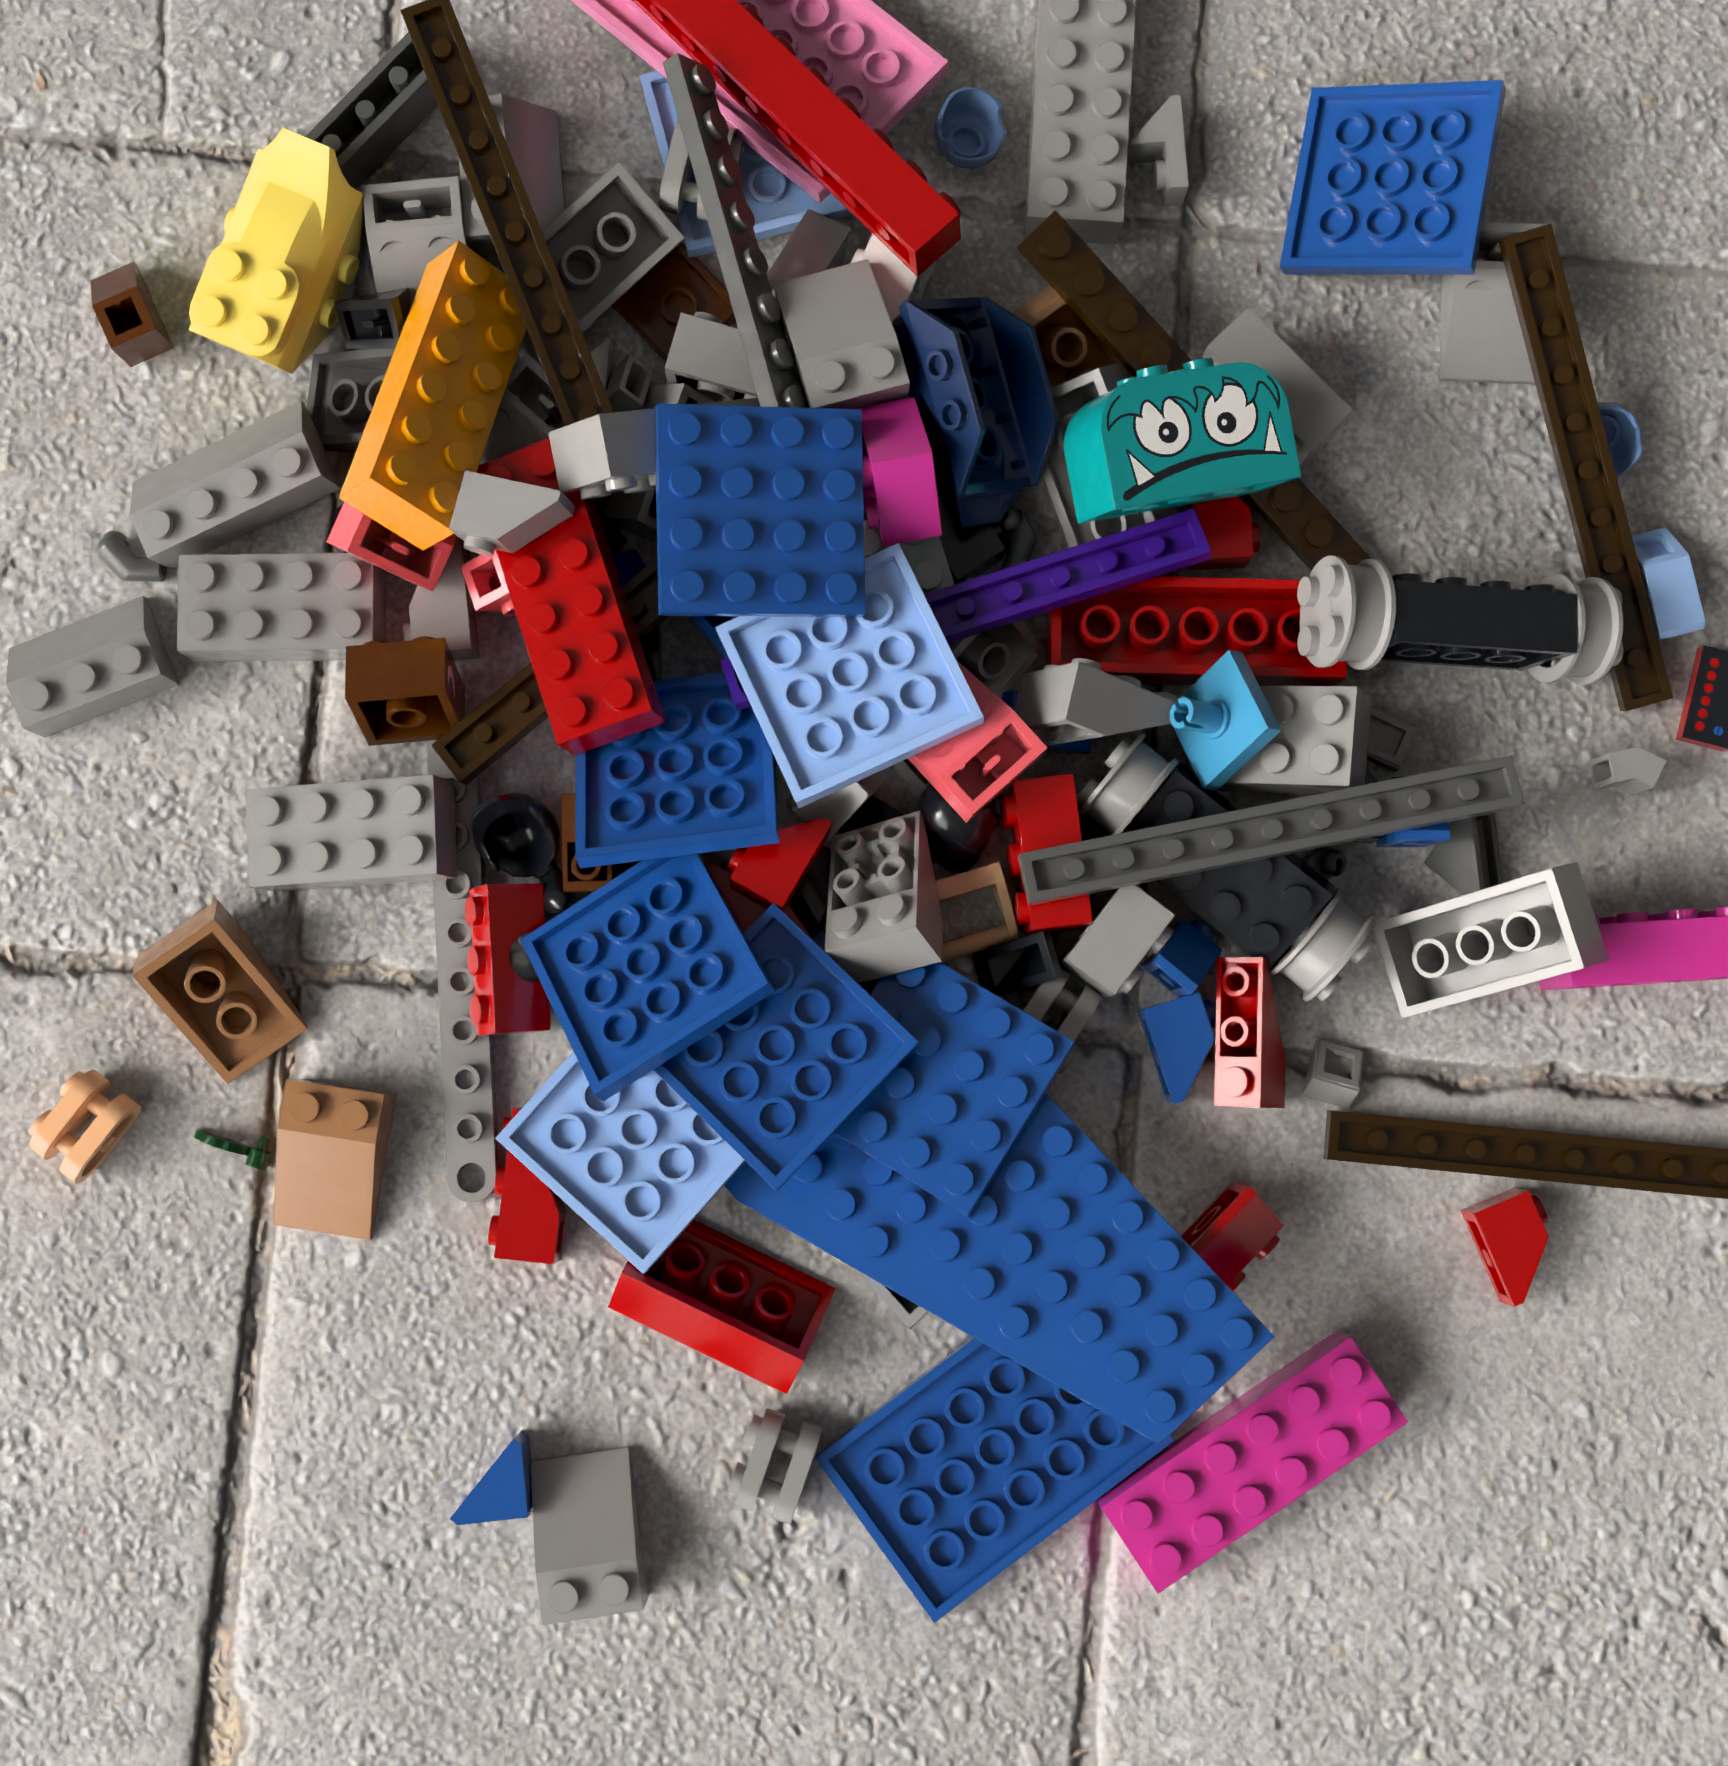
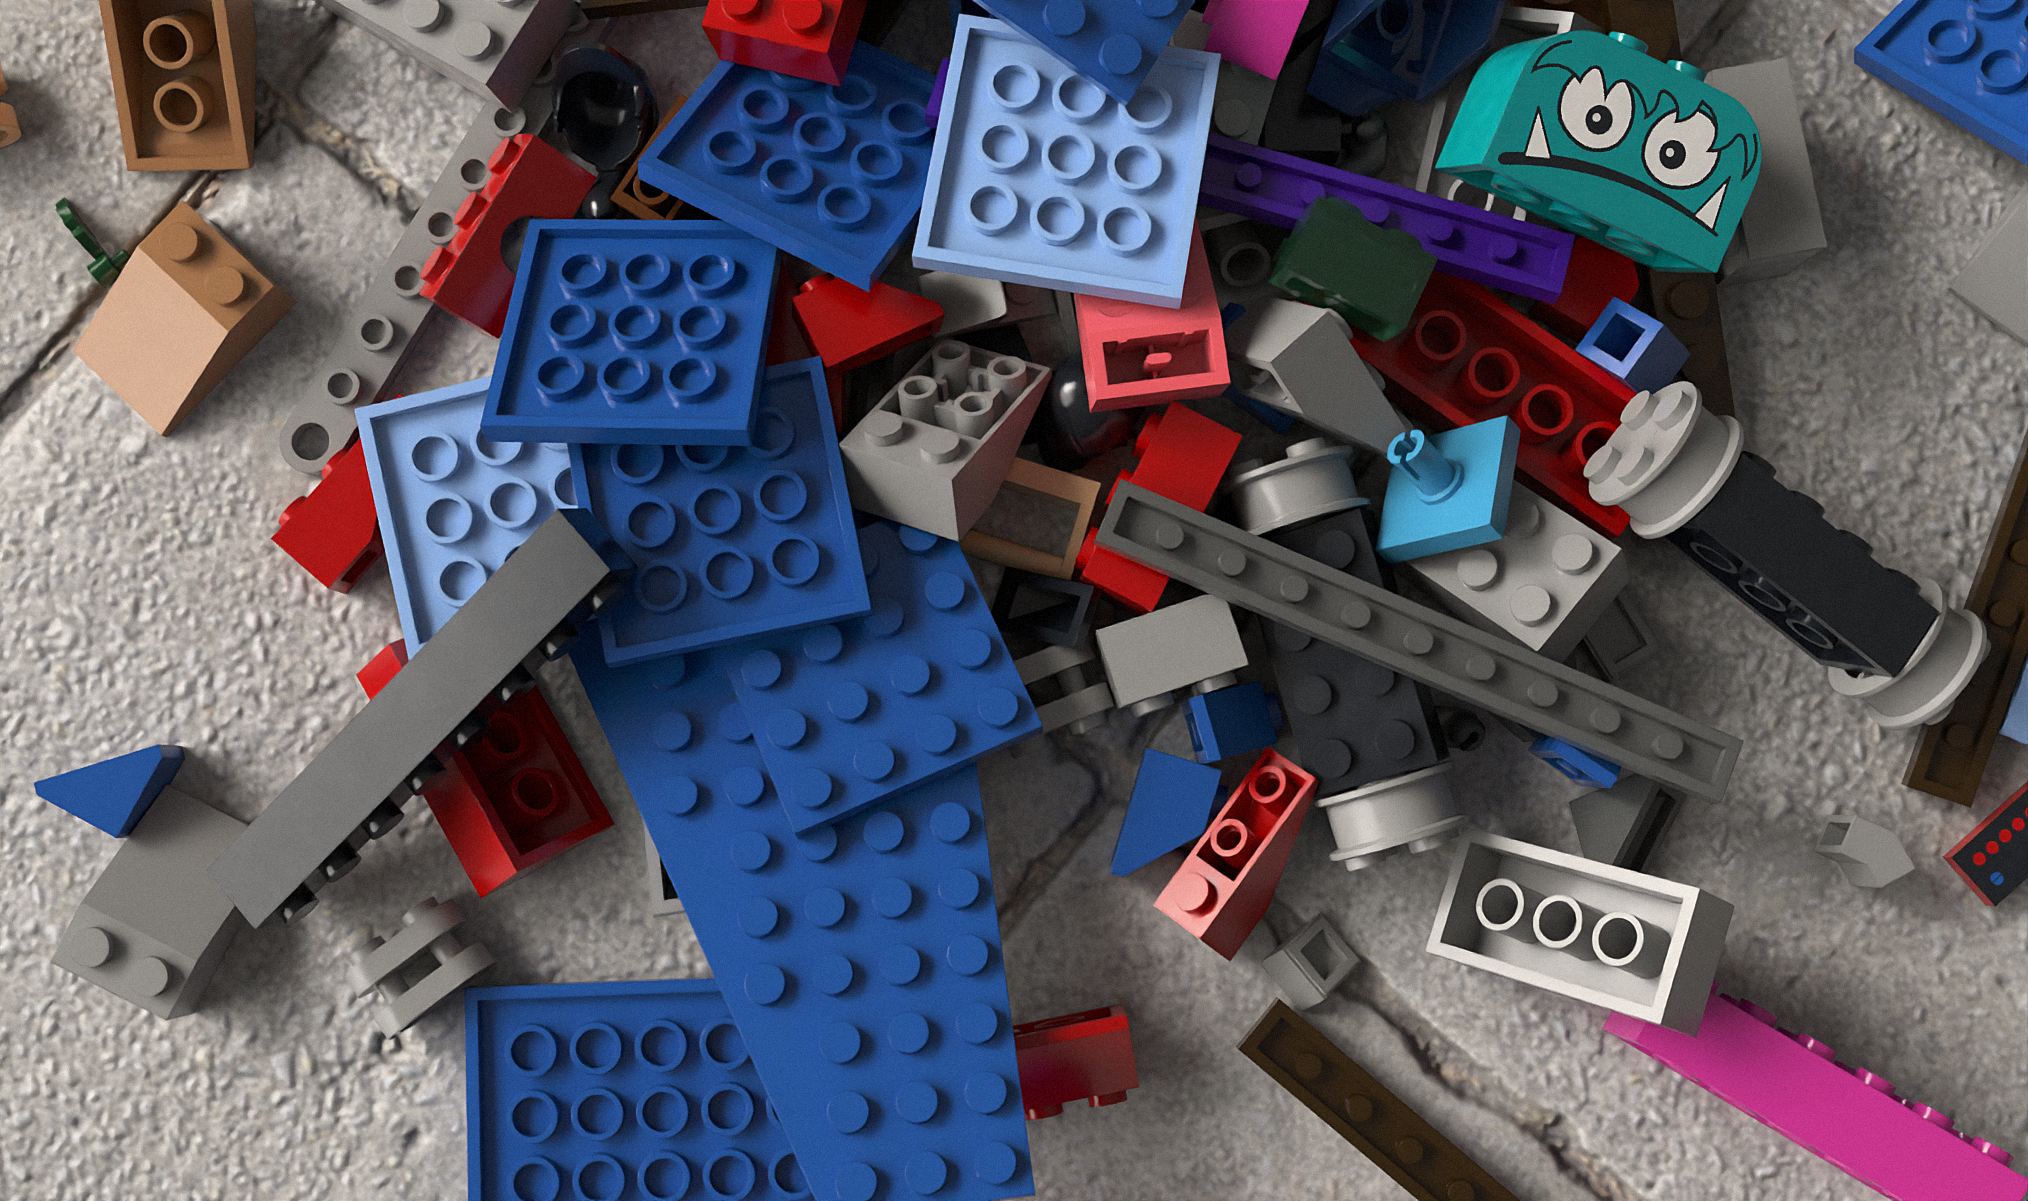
camera: 35 degrees right, 0 degrees up
(680, 1305) = (424, 717): none -> brick
(1073, 622) = (1353, 267): none -> clear green brick
(1275, 553) = (1633, 348): none -> blue brick

